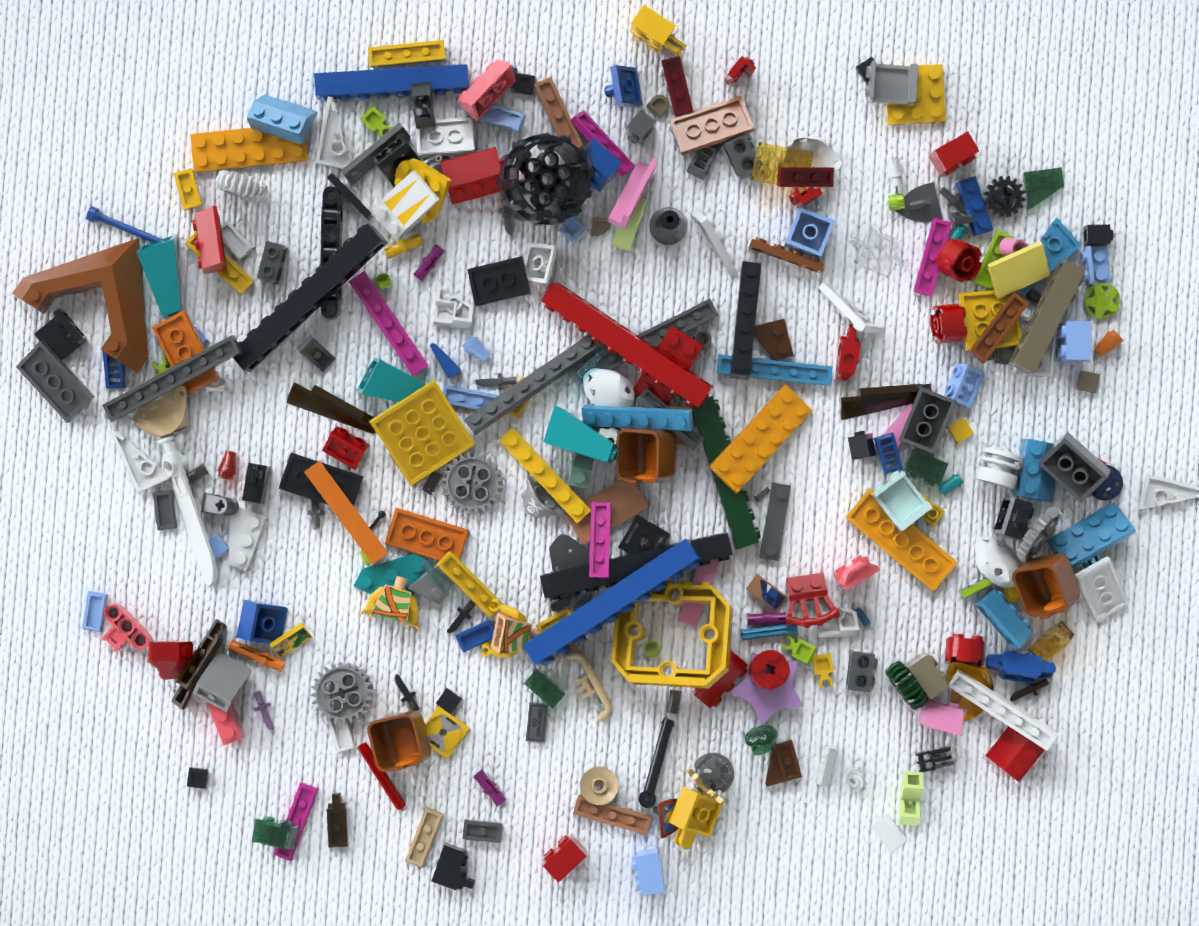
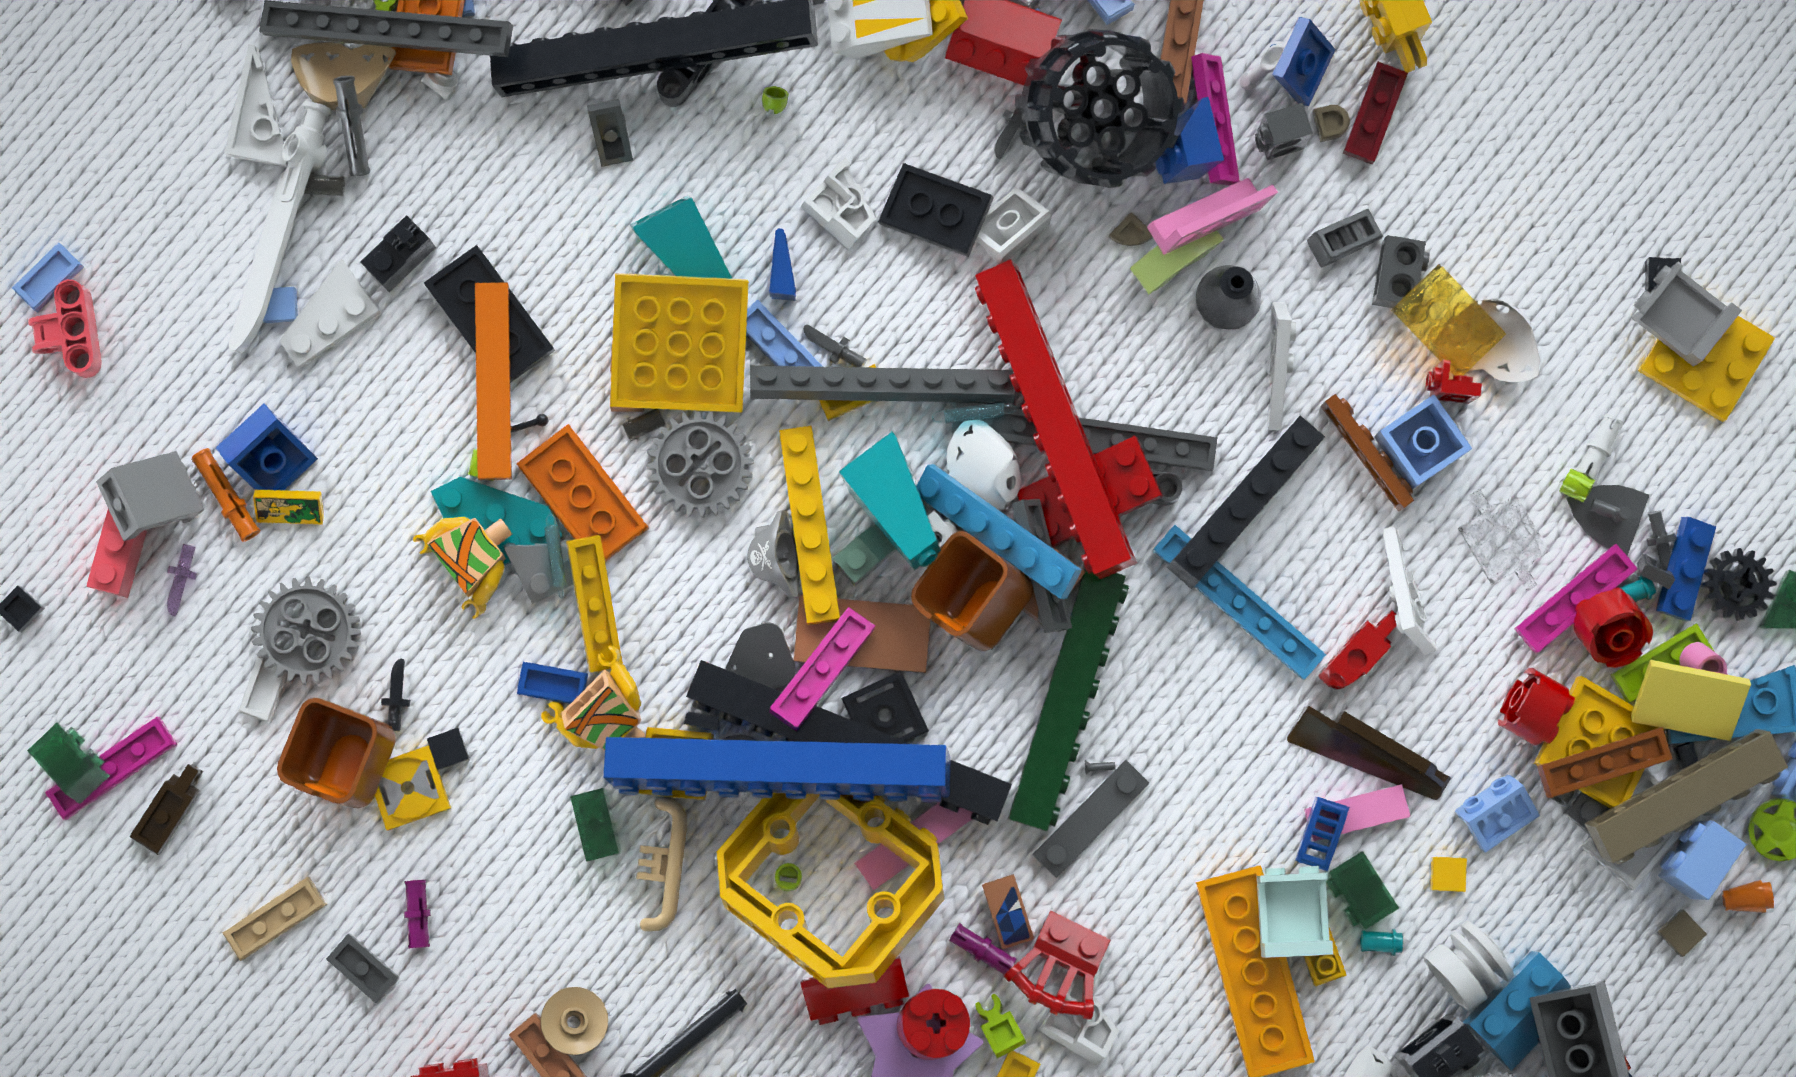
camera: 35 degrees right, 5 degrees down
(165, 510) = (246, 205): dark grey tile -> none
(170, 657) = (103, 412): red slope -> none
(176, 423) = (346, 90): none -> flat silver pin
(198, 664) = (135, 447): dark brown wedge -> none
(219, 505) = (325, 248): piece -> none
(227, 467) = (375, 204): clear red cone -> none
(315, 513) = (450, 354): dark grey piece -> none
(330, 406) = (575, 218): dark brown wedge -> none
(345, 447) = (558, 291): red bracket -> none
(382, 777) = (276, 793): red axle -> none
(388, 323) = (740, 162): dark pink plate -> none
(403, 246) = (837, 70): yellow pin -> none
(429, 262) = (856, 117): magenta pin -> none
(449, 870) = (277, 987): black hinge -> none
(464, 613) = (558, 640): black piece -> none
(476, 348) = (837, 279): light blue cone -> none
(536, 722) = (550, 867): dark grey tile -> none
(572, 229) = (1089, 209): light blue tile -> none
(609, 100) = (1267, 64): none -> white piece
(674, 702) = (766, 976): clear smoke pin -> none
(711, 125) = (1386, 198): plate -> none
(743, 65) = (1487, 143): red bracket -> none
(760, 438) = (1151, 684): light orange plate -> none
(768, 631) = (972, 970): dark azure axle -> none
(774, 338) = (1269, 558): reddish brown wing -> none
(805, 176) = (1471, 358): dark red plate -> none
(855, 573) = (1163, 971): coral slope -> none
(861, 445) = (1290, 796): black brick -> none
(862, 616) = (1122, 1044): dark azure piece -> none
(927, 421) = (1410, 827): dark grey slope -> none
(954, 153) = (1707, 473): red brick -> none

